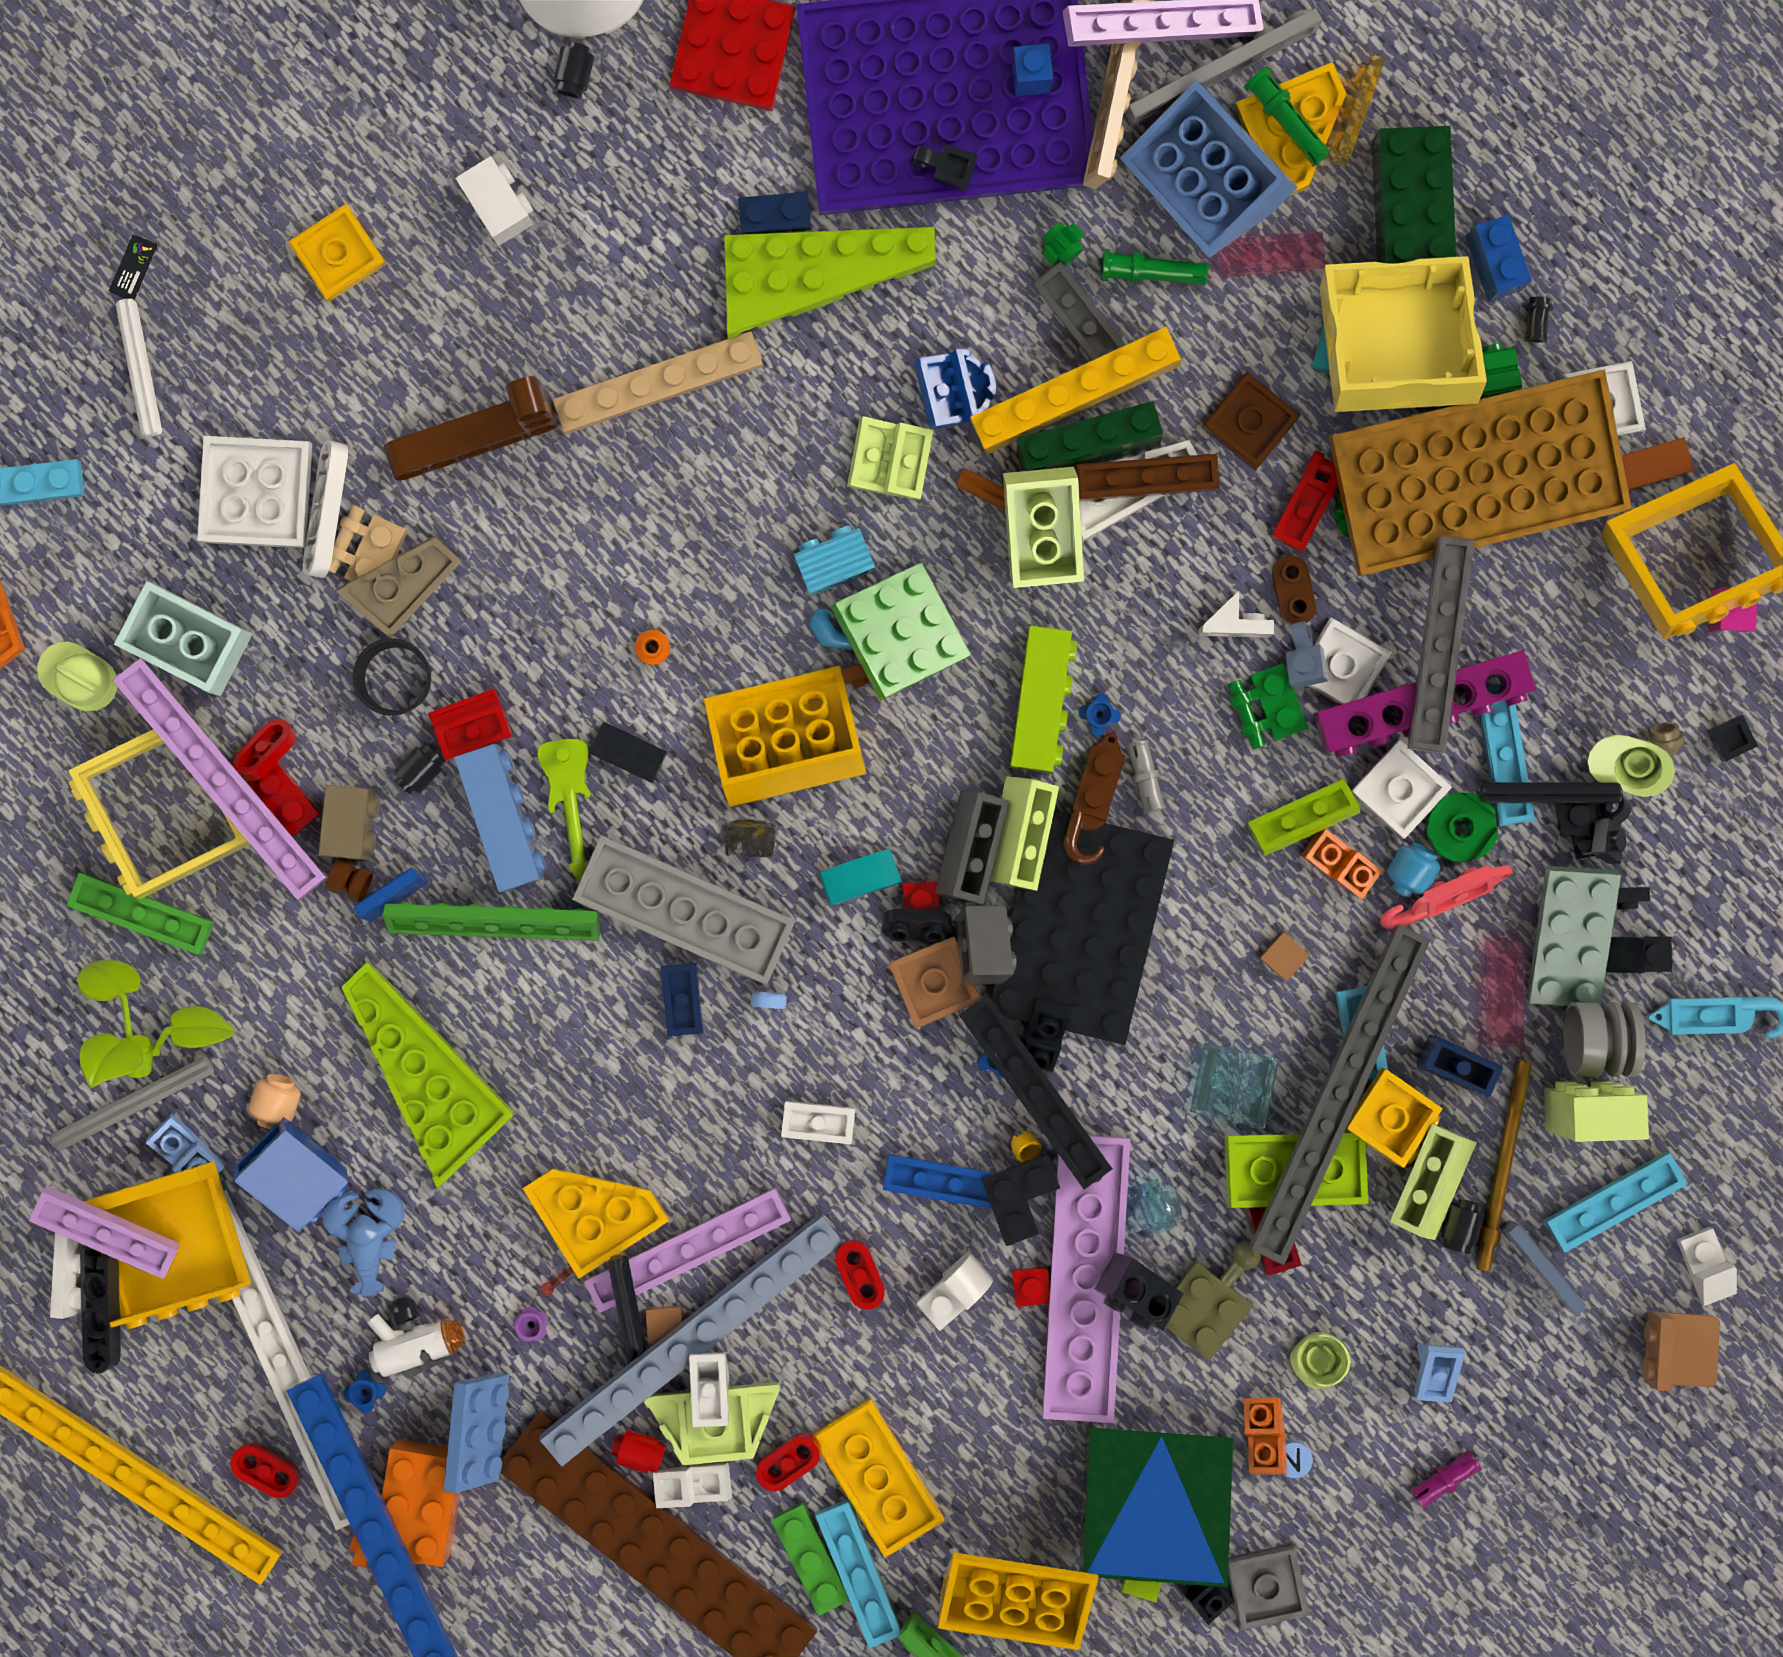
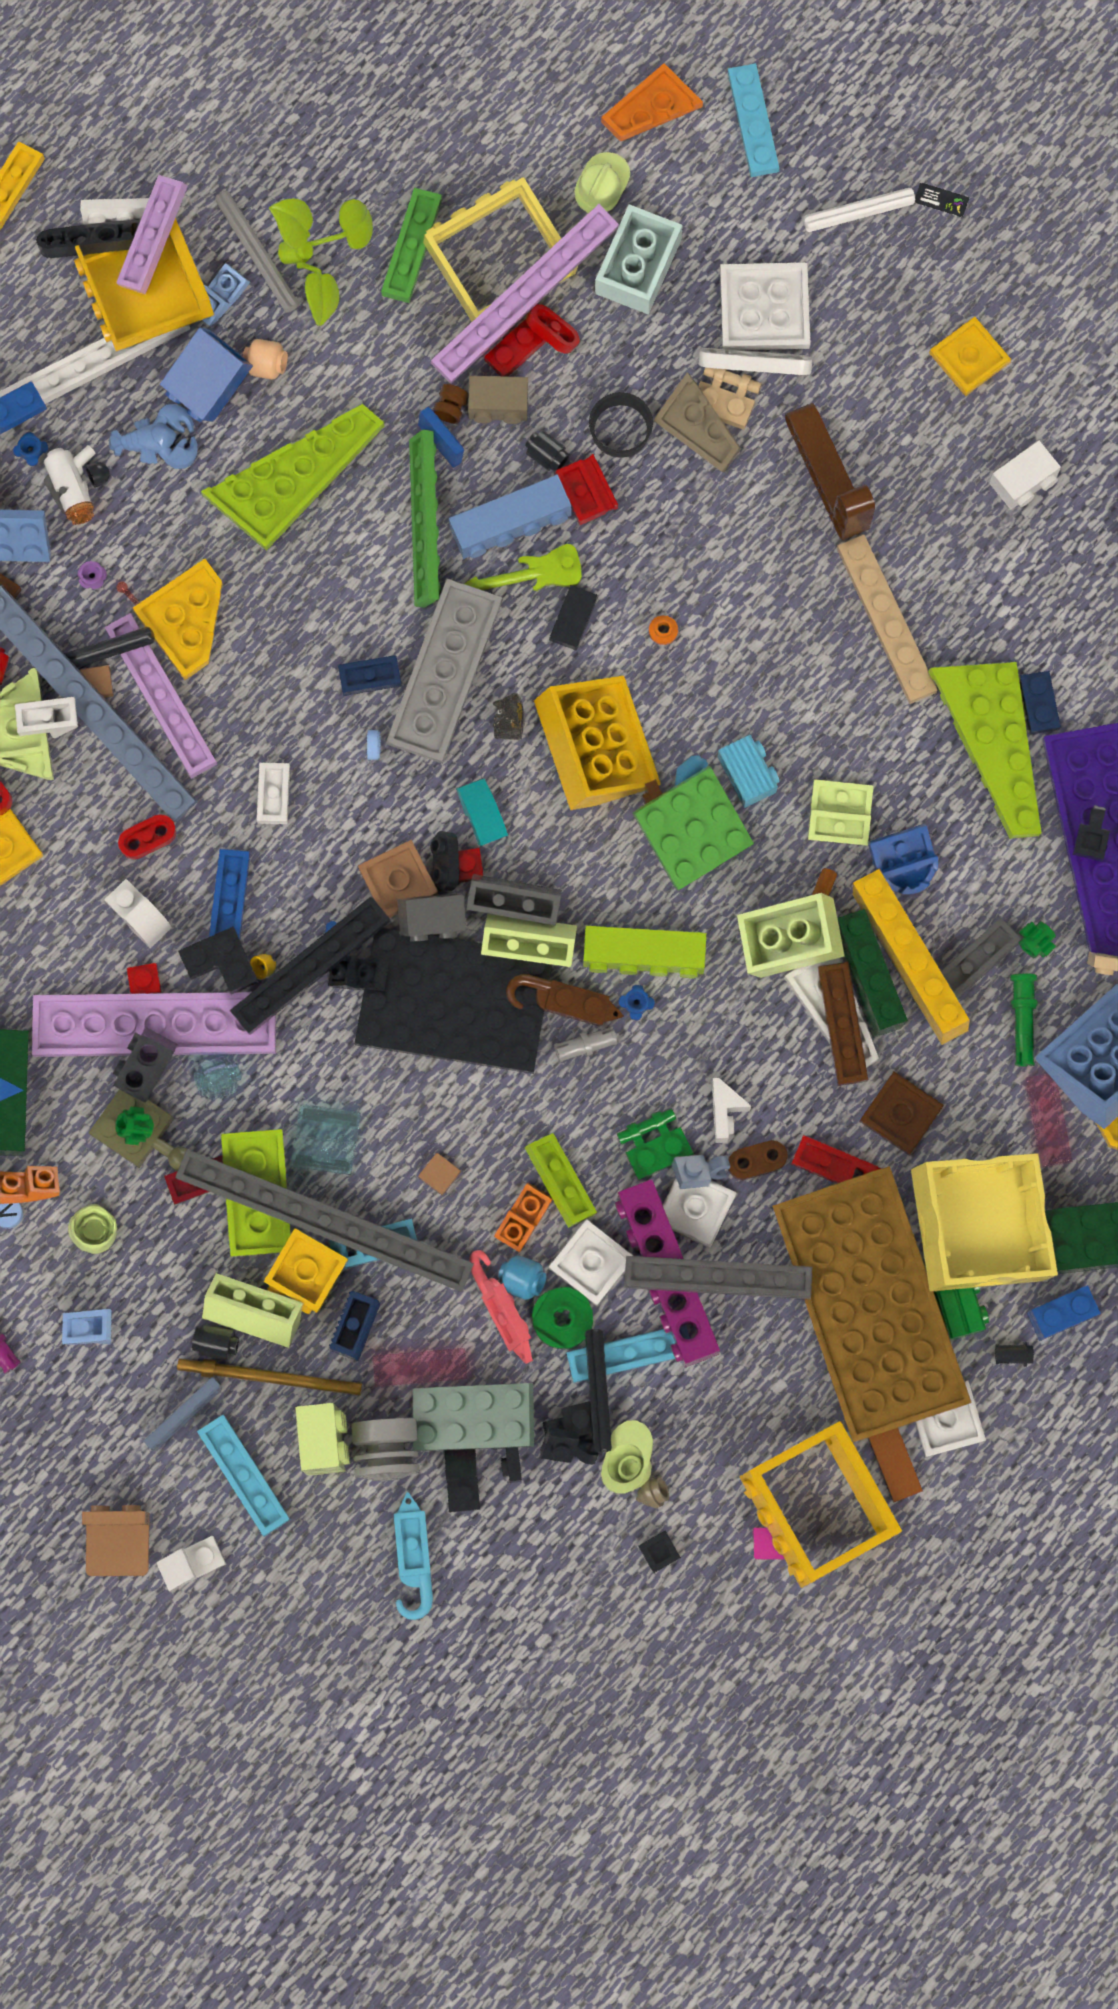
camera: 85 degrees right, 10 degrees down
(1214, 1308) = (134, 1125): none -> green gear

